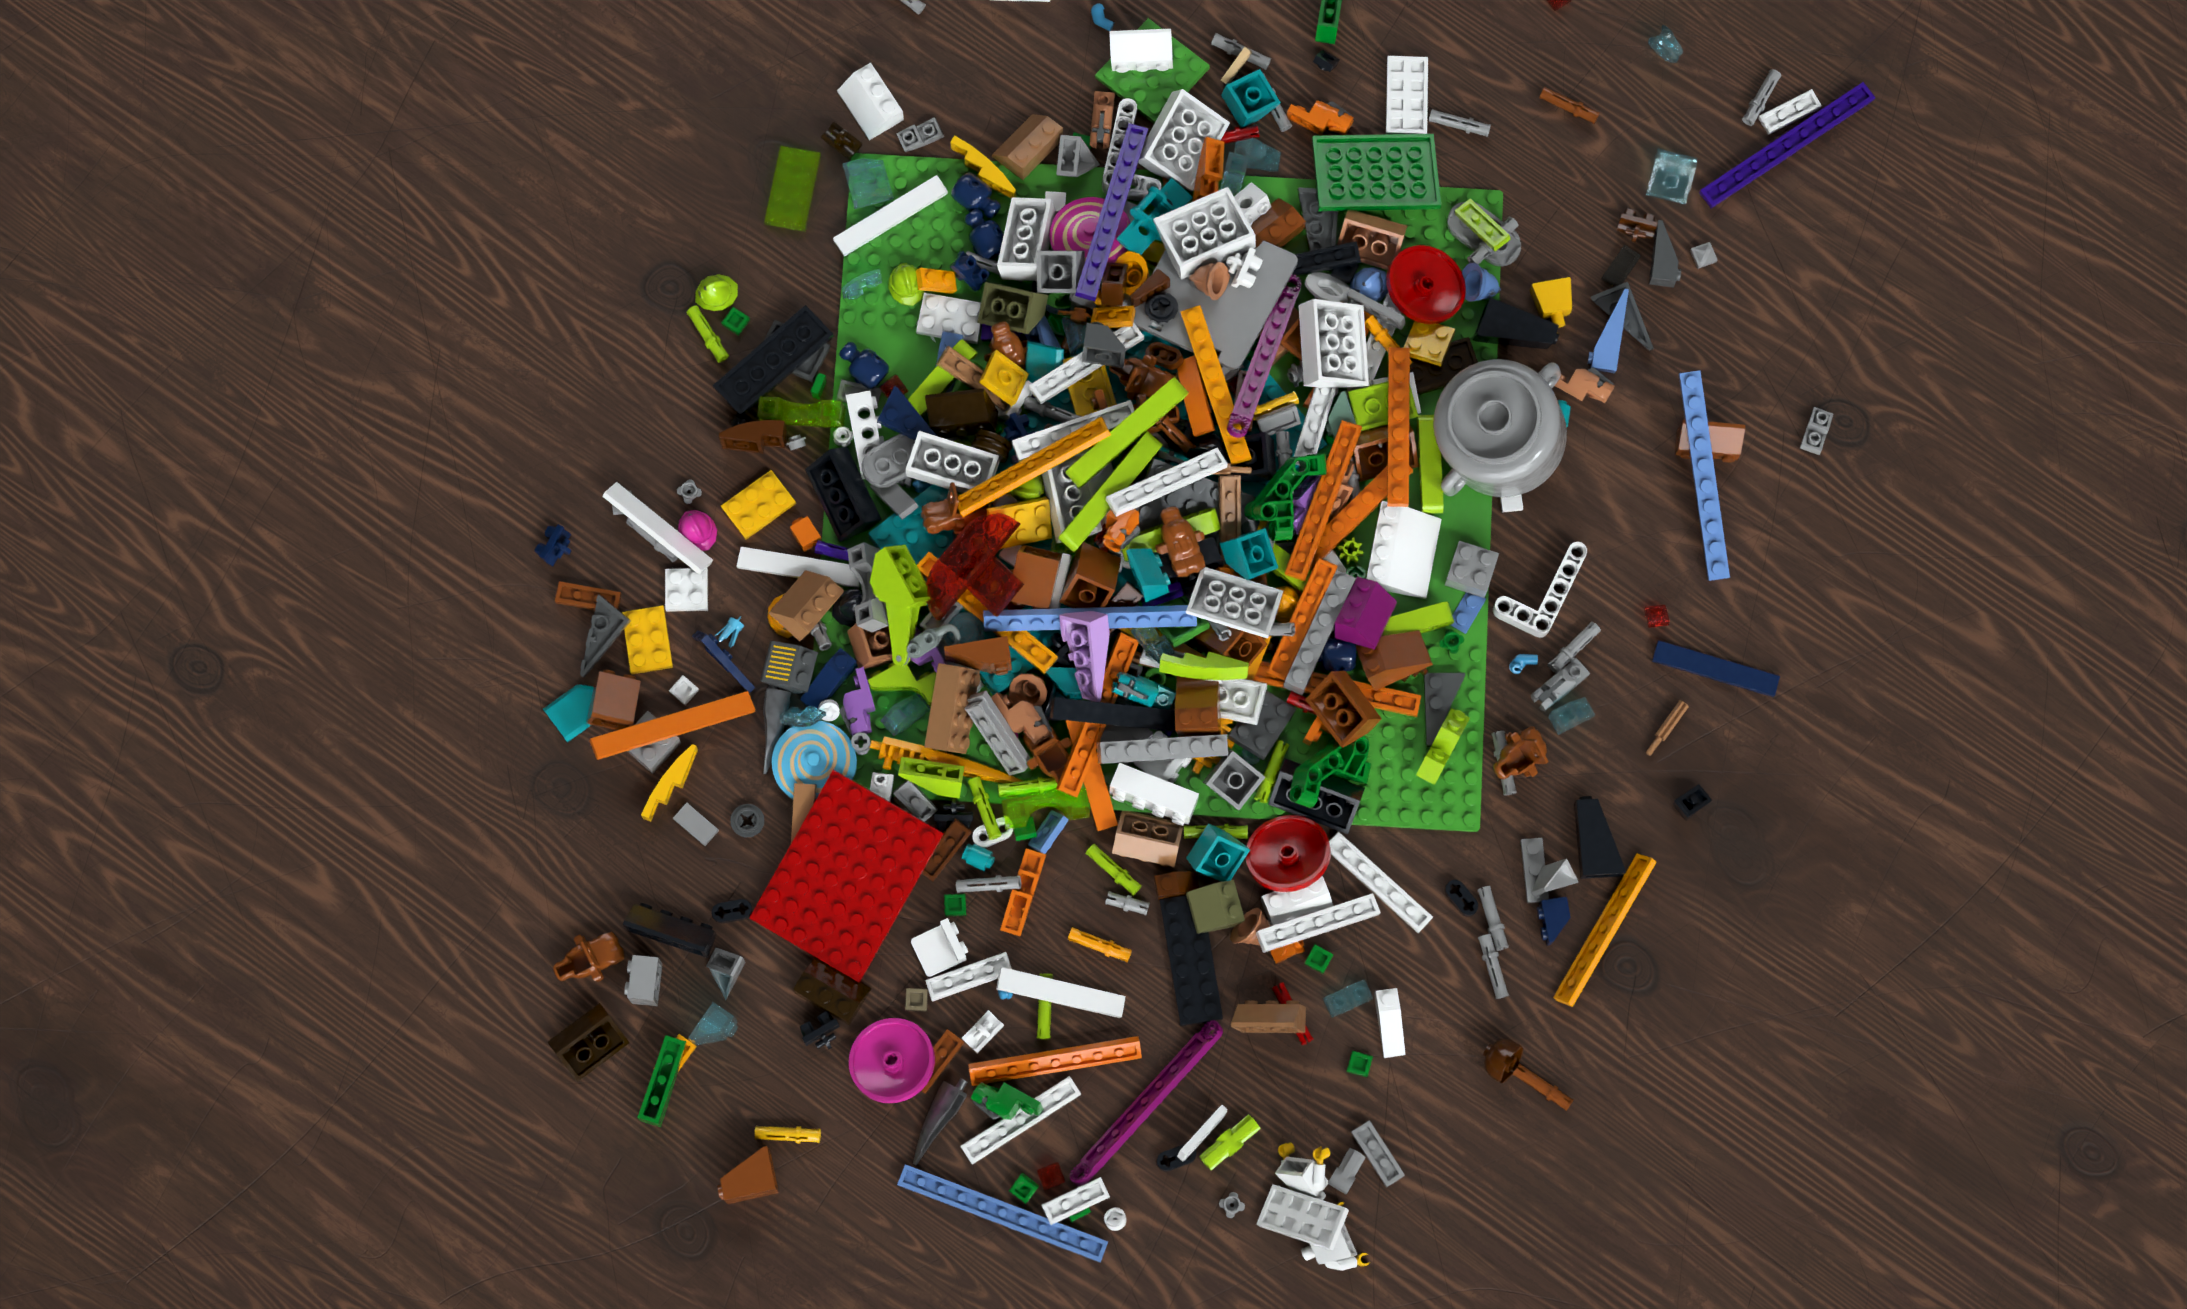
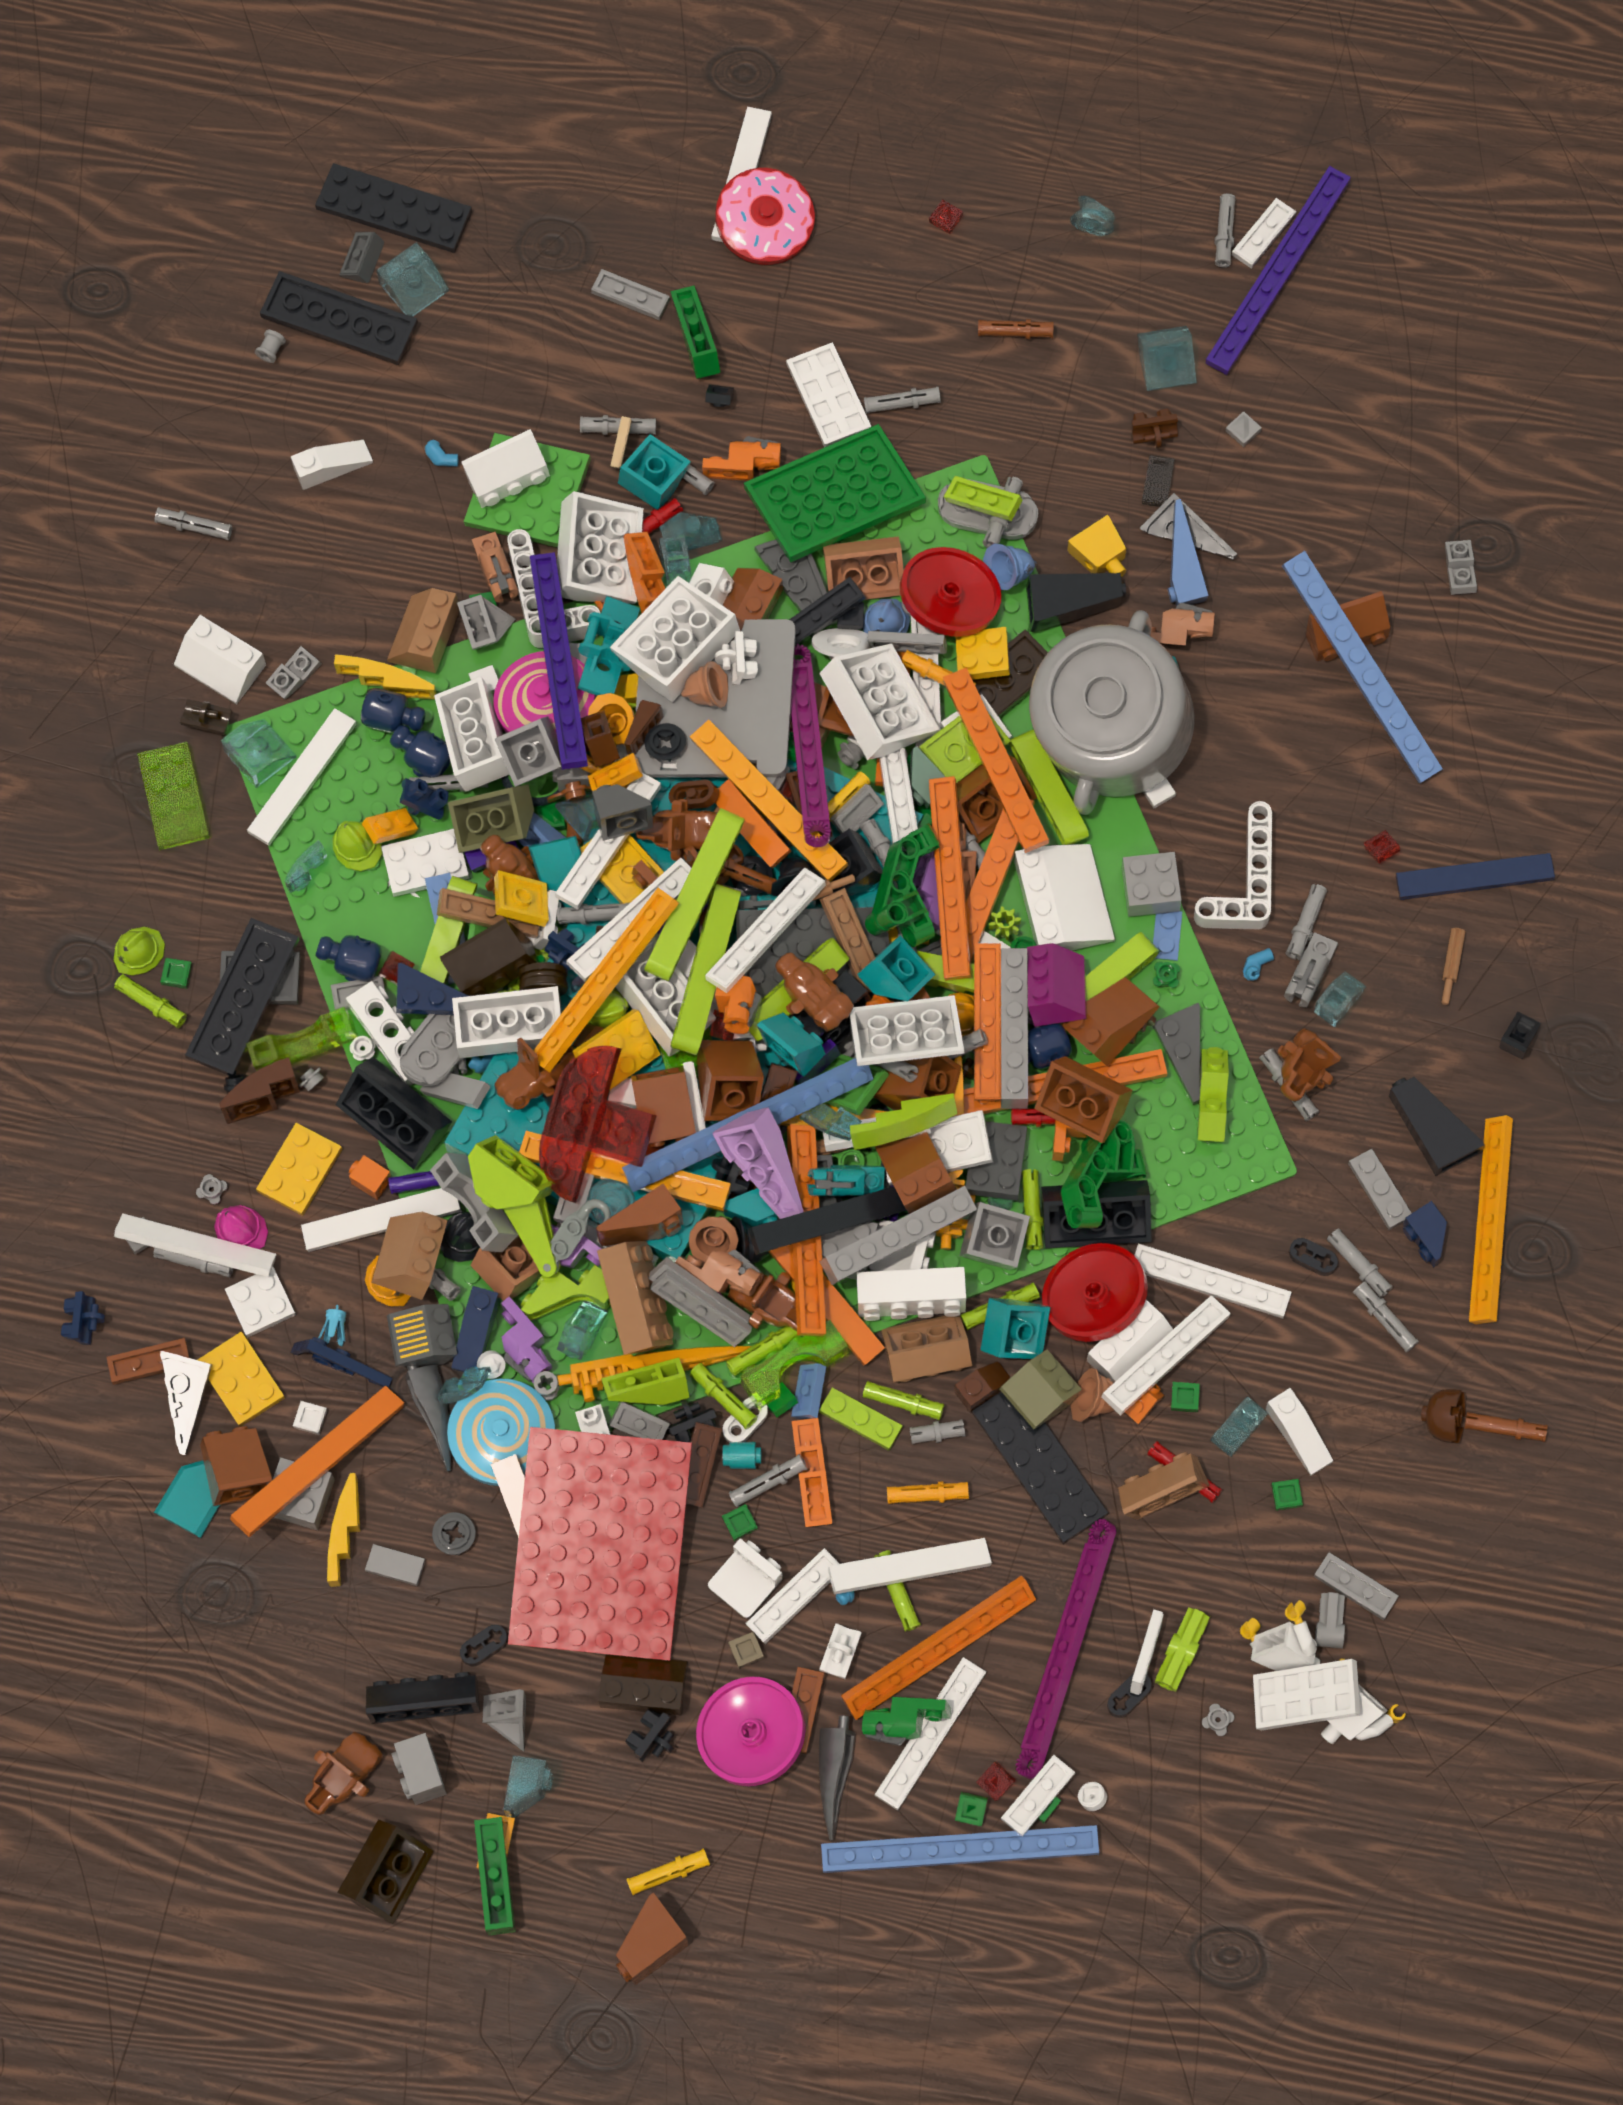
camera: 20 degrees left, 5 degrees down
(818, 386) = (307, 1004): green tile -> none
(1076, 869) = (860, 1419): none -> lime plate
(1554, 877) = (1408, 1184): light grey slope -> none
(1664, 260) = (1202, 451): dark grey slope -> none

